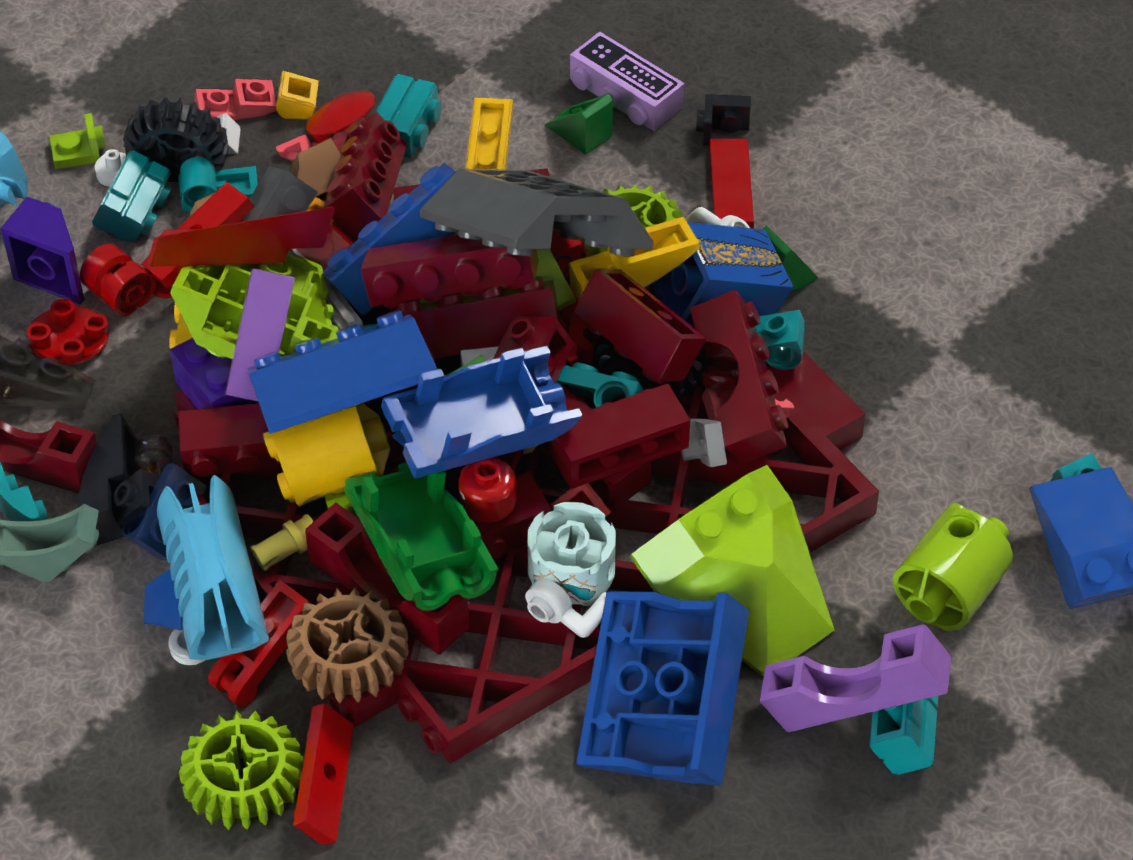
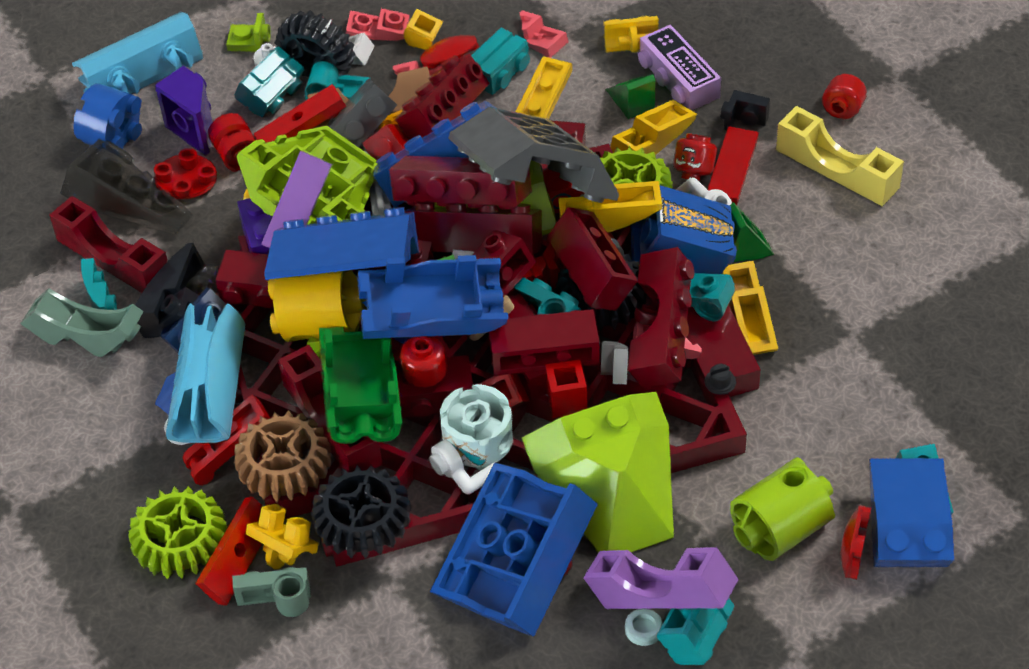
camera: 20 degrees right, 0 degrees up
(243, 242) = (311, 131): red wedge -> none
(283, 543) = (264, 368): light yellow pin -> none
(378, 749) = (281, 541): none -> yellow hips
(387, 805) = (273, 587): none -> sand green plate
(443, 695) = (353, 502): none -> black gear
(450, 78) = (540, 37): none -> coral slope
(550, 51) = (626, 33): none -> yellow hips
(626, 157) = (655, 128): none -> yellow slope
(659, 485) = (566, 388): none -> red brick
(688, 181) = (694, 156): none -> red head
(810, 138) = (808, 142): none -> light yellow arch
(825, 344) = (751, 308): none -> yellow slope
(827, 435) = (720, 380): none -> black piece
(831, 74) = (846, 94): none -> red head
(841, 742) = (643, 627): none -> light aqua tile
(1046, 585) = (853, 541): none -> red dish

